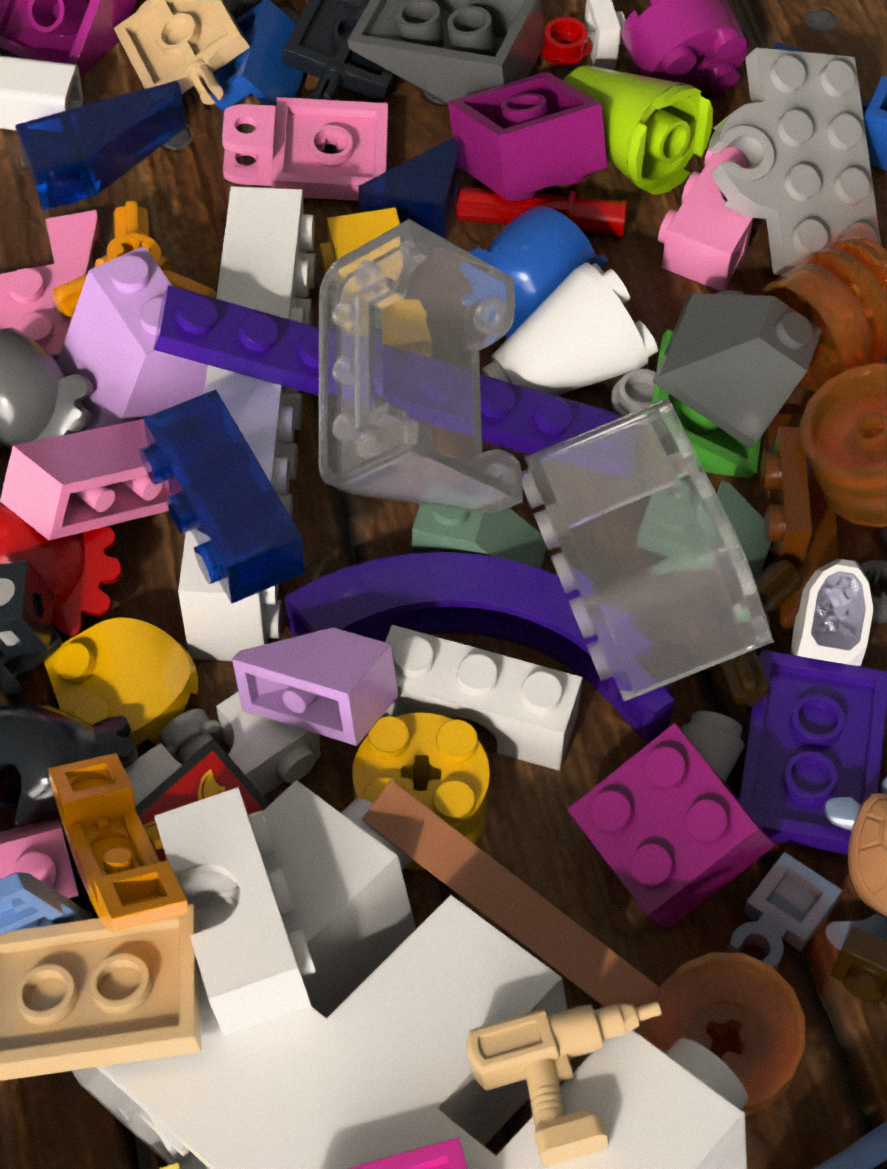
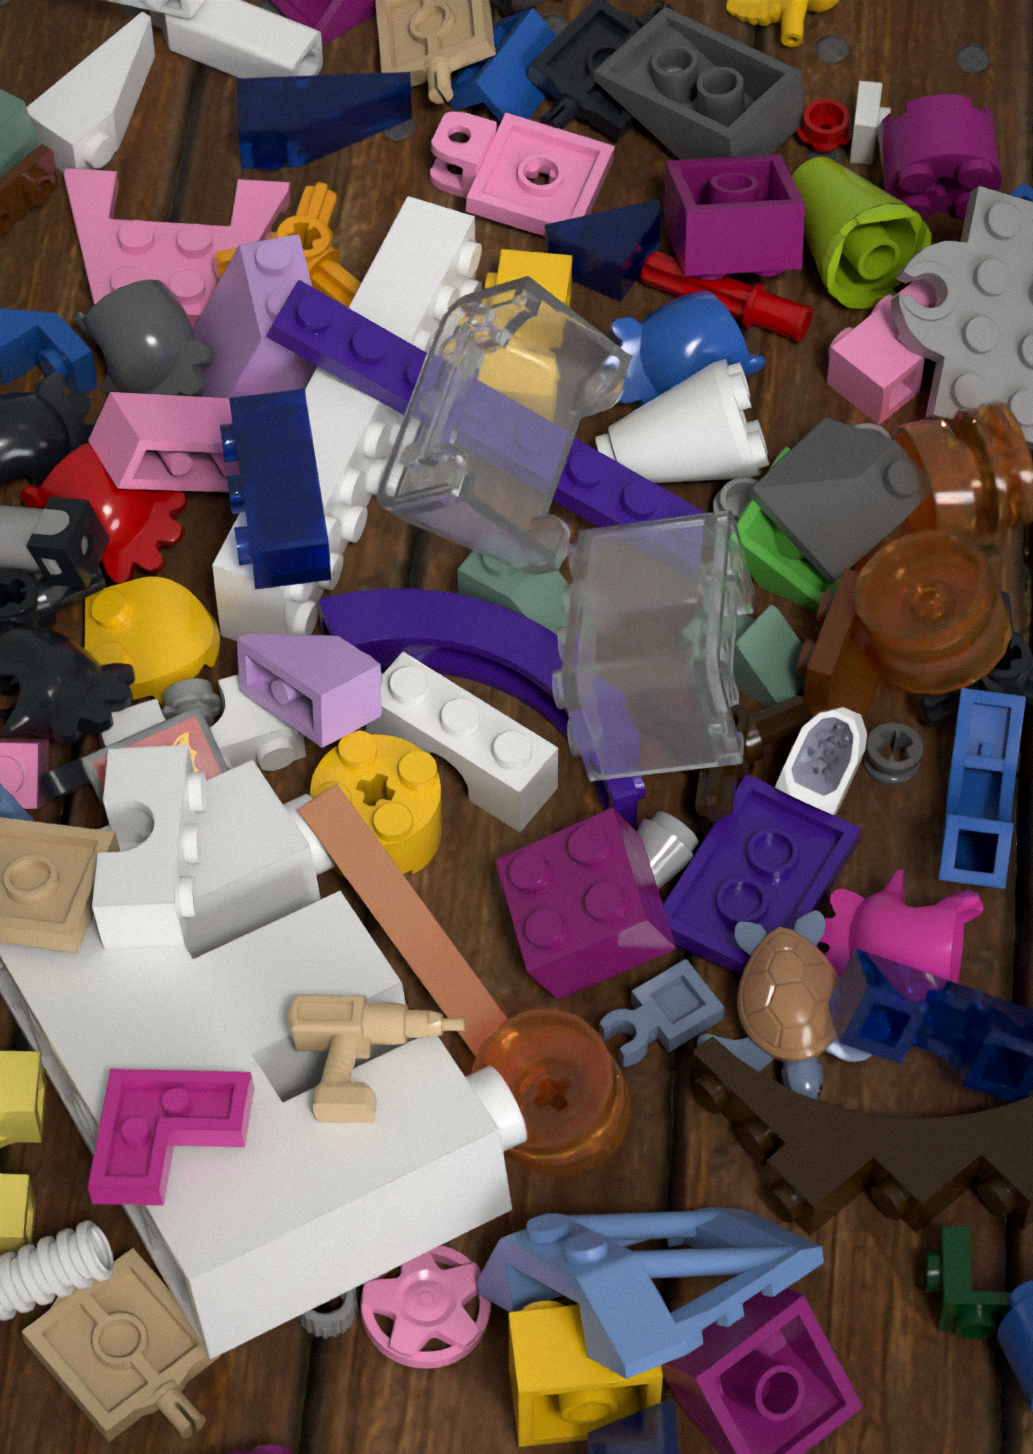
camera: 20 degrees right, 0 degrees up
(112, 846) = (71, 761): light orange slope -> none

